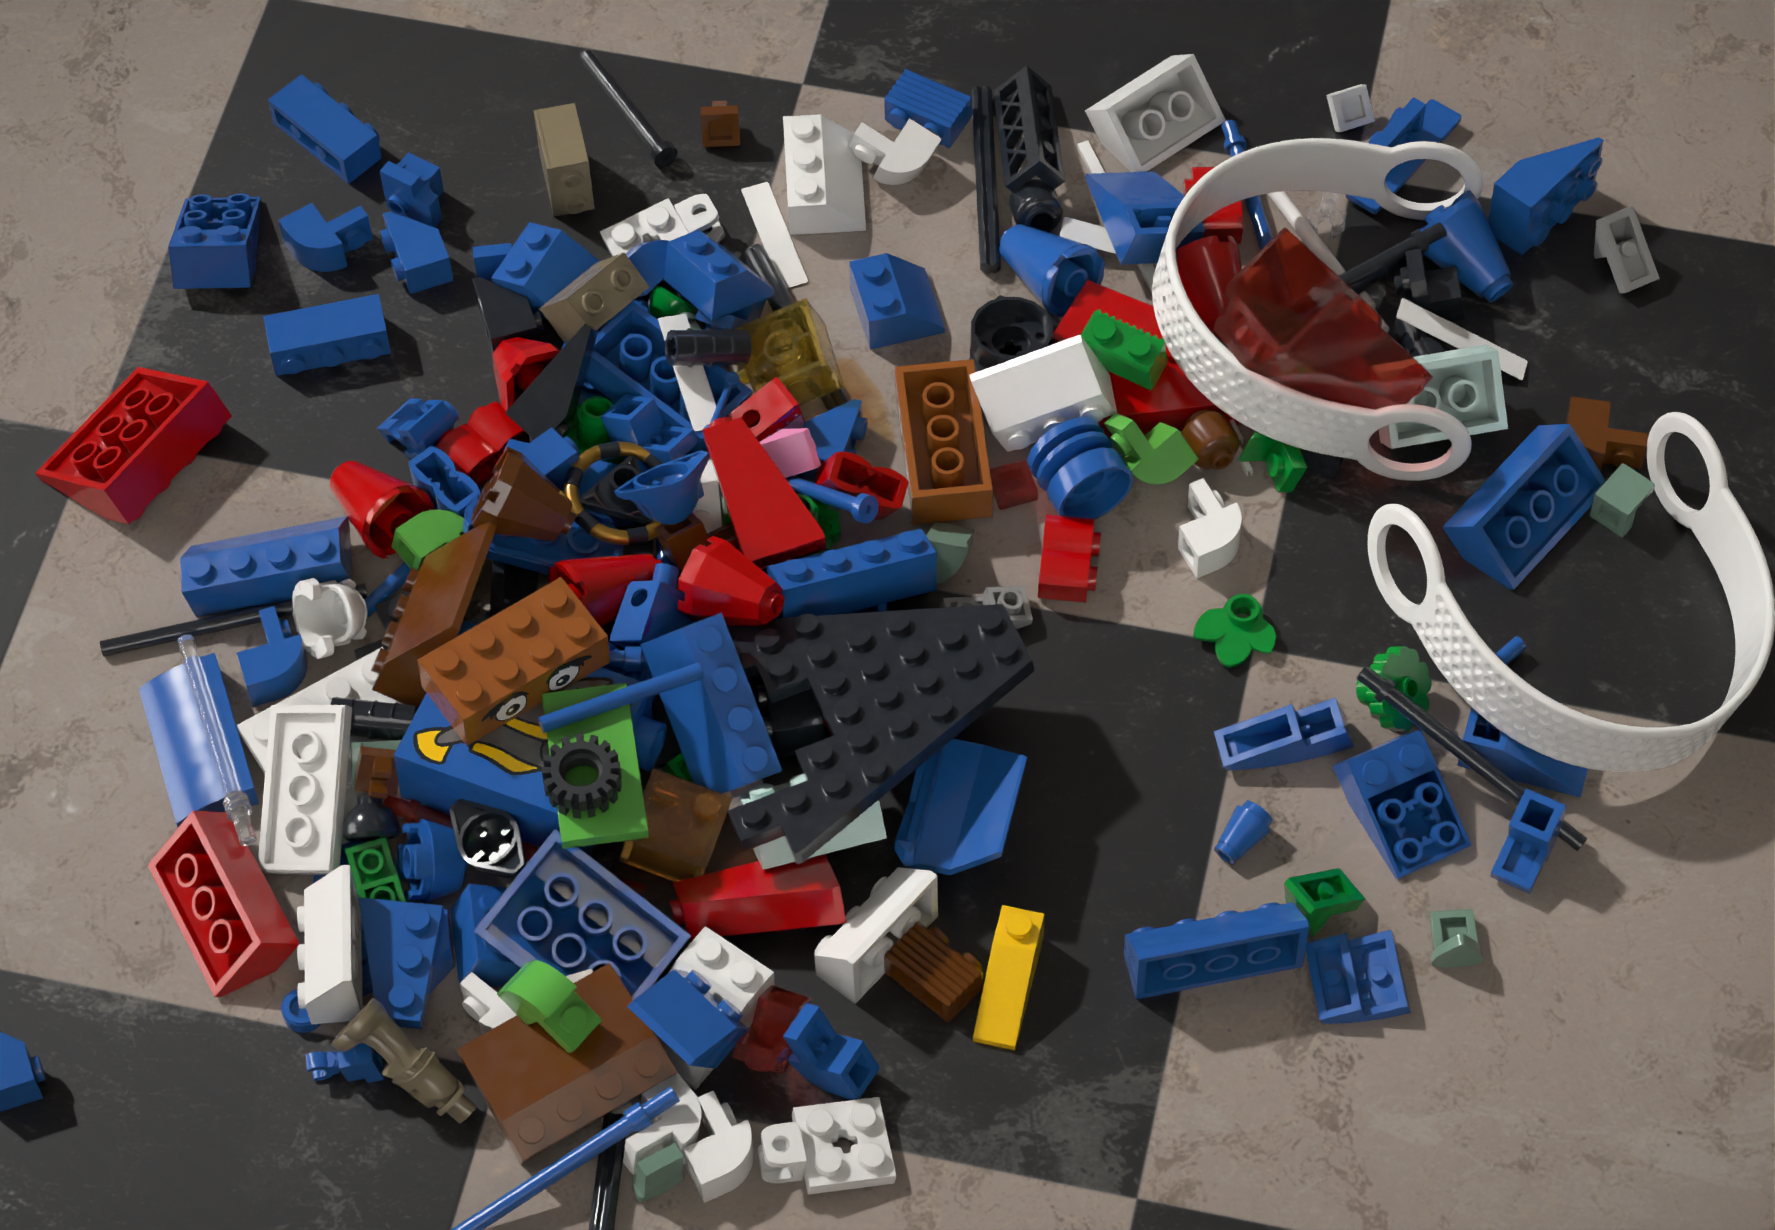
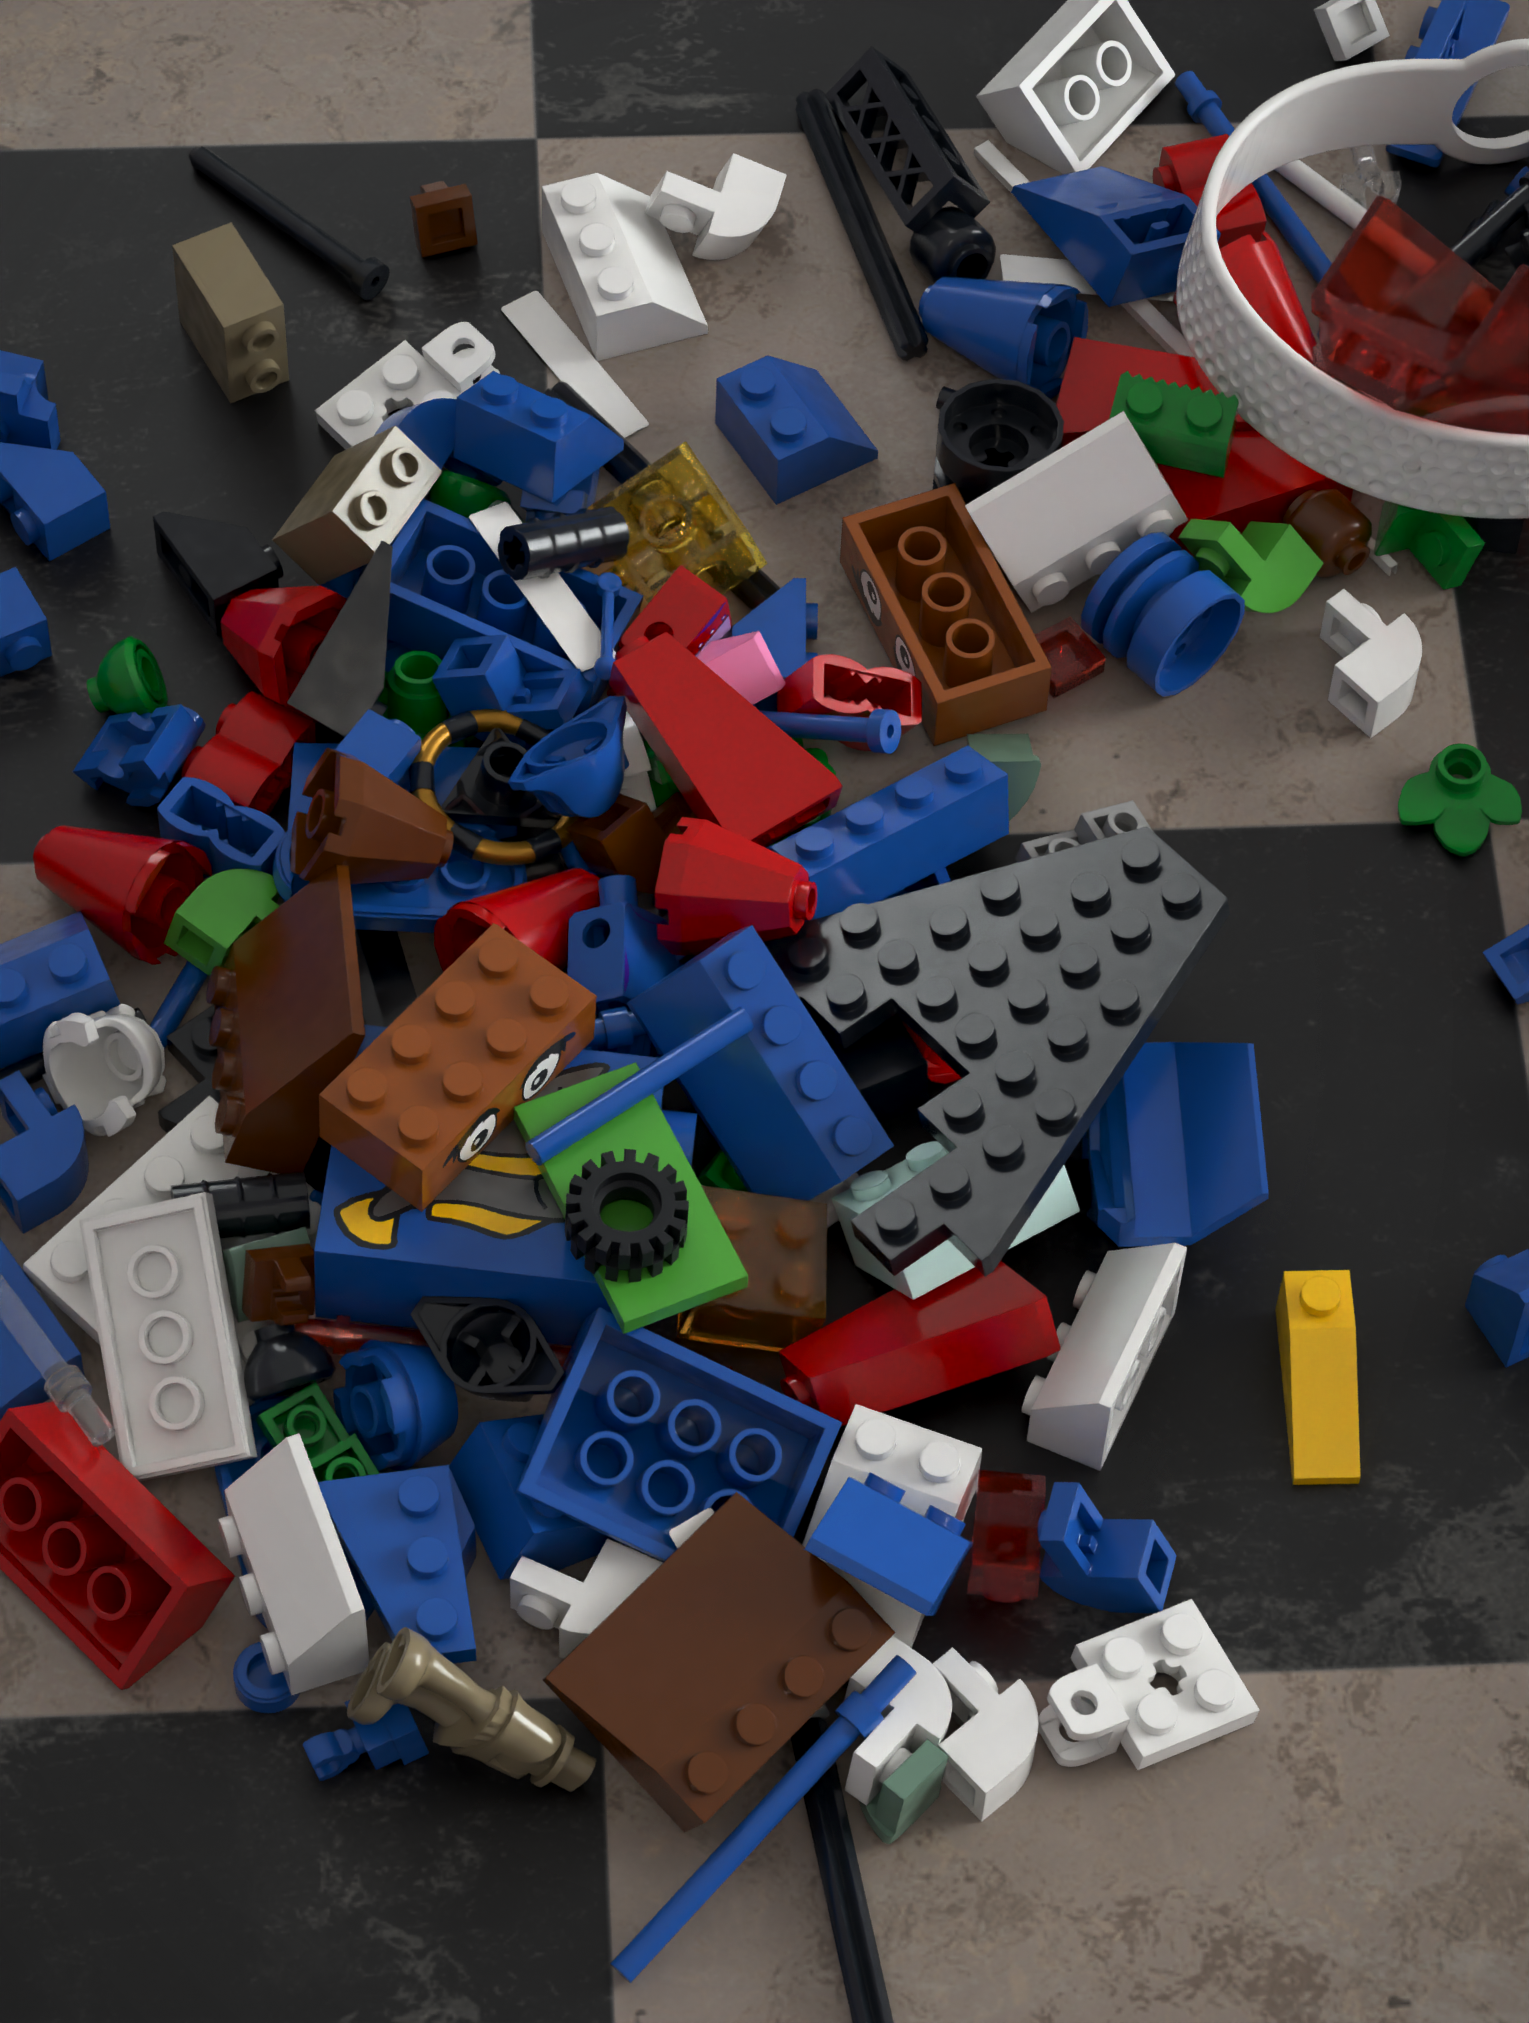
camera: 20 degrees left, 0 degrees up
(427, 378) = (128, 680): none -> green brick
(489, 258) = (170, 485): blue tile -> none
(542, 264) = (254, 474): blue slope -> none
(548, 997) = (676, 1563): bright green brick -> none
(928, 104) = (740, 124): blue brick -> none
(934, 970) = (1207, 1393): reddish brown brick -> none
(1066, 558) = (1182, 747): red brick -> none

